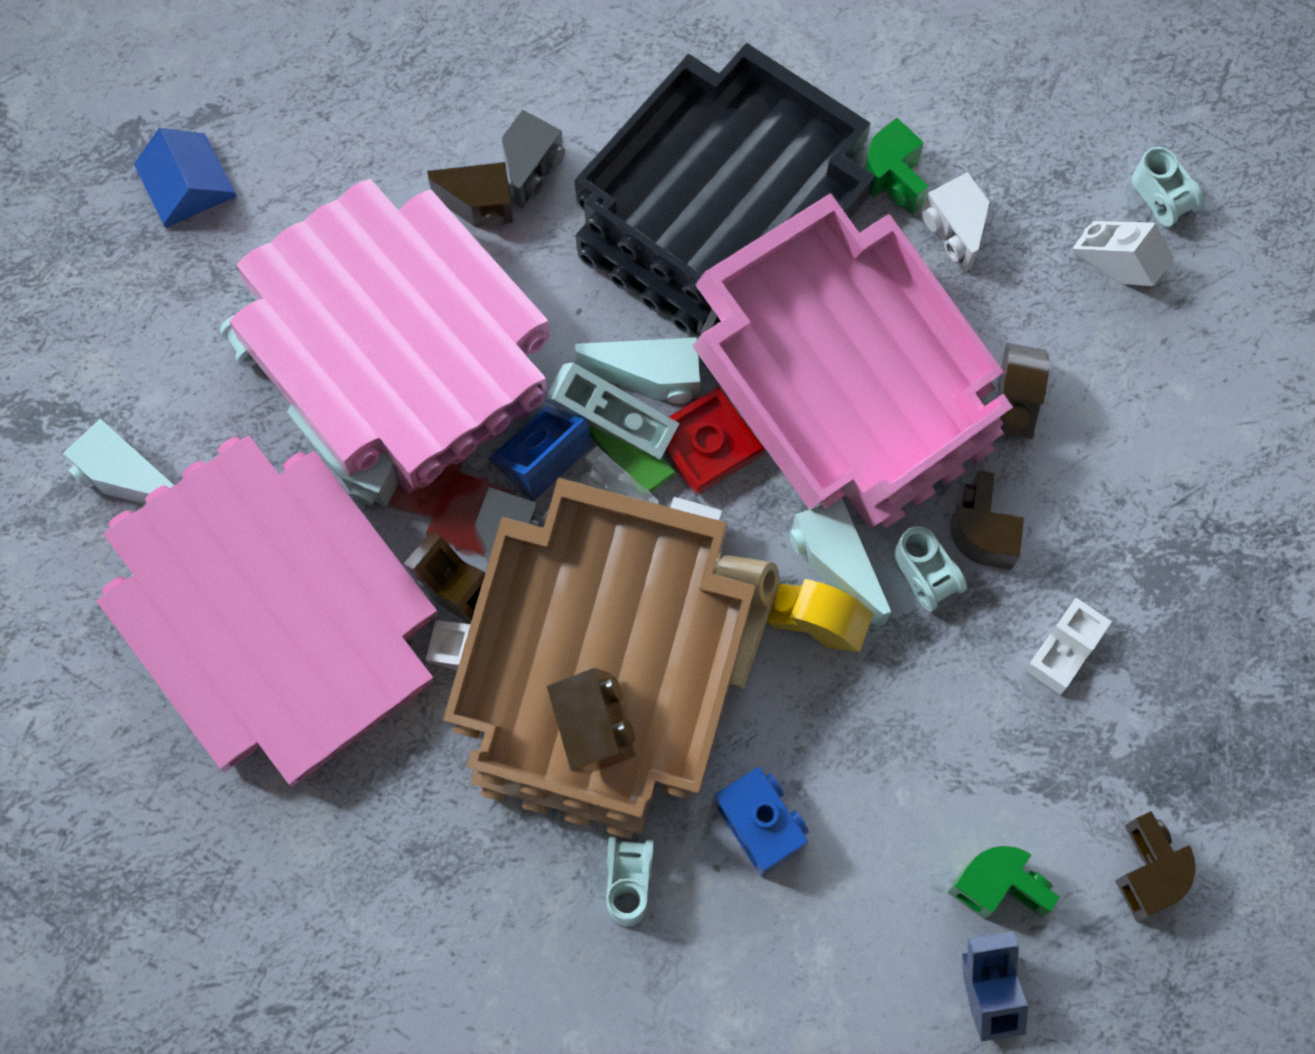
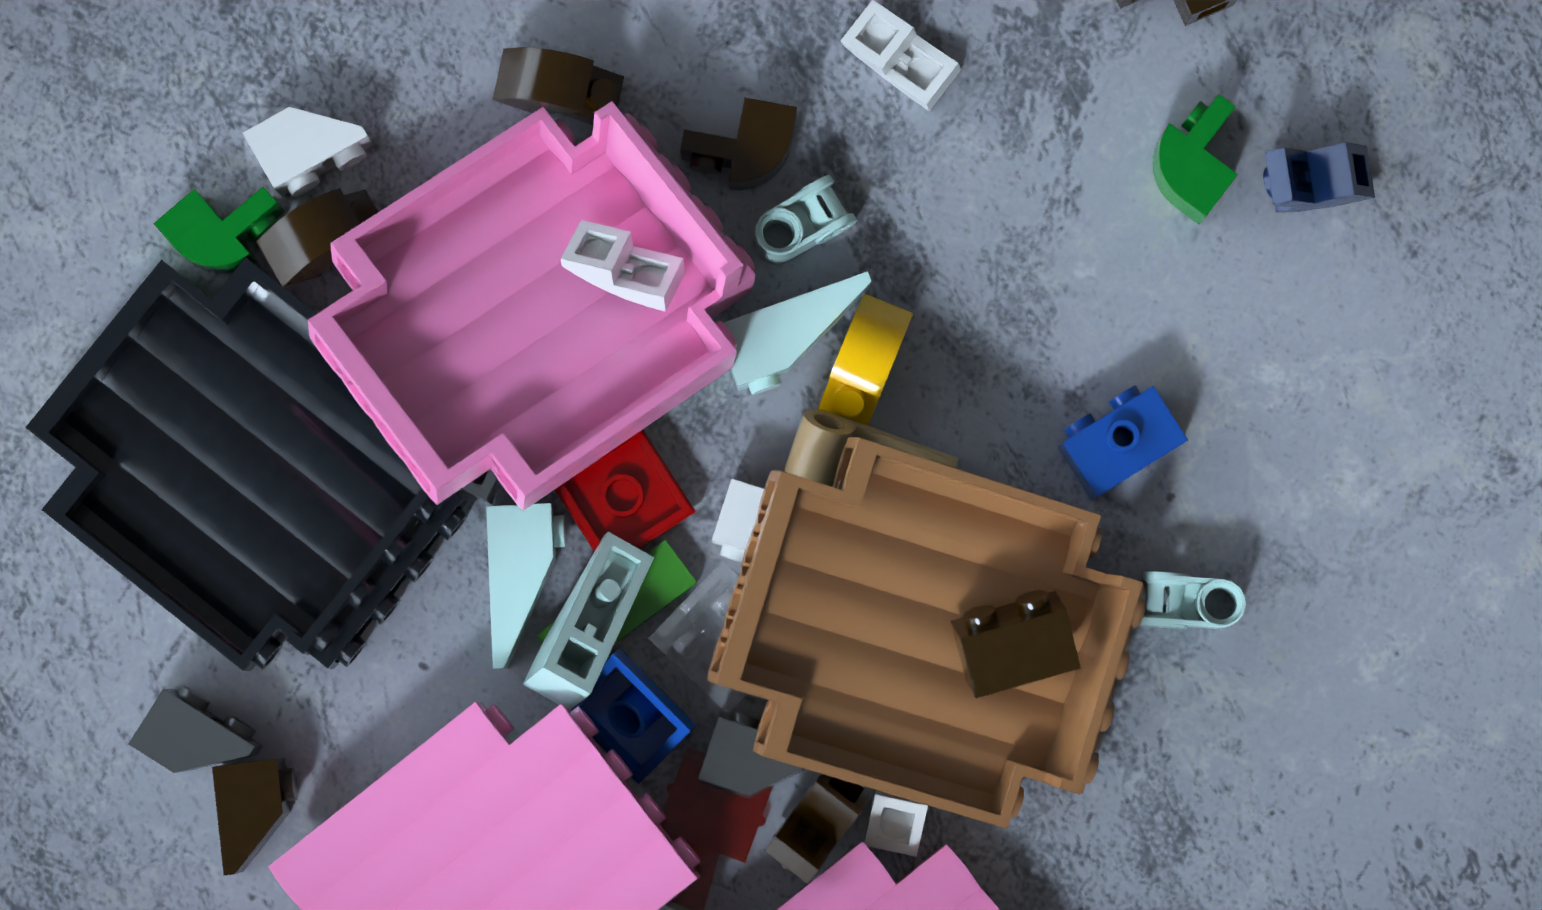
camera: 90 degrees left, 15 degrees up
(882, 422) = (612, 263): none -> white slope
(904, 211) = (301, 240): none -> dark brown brick

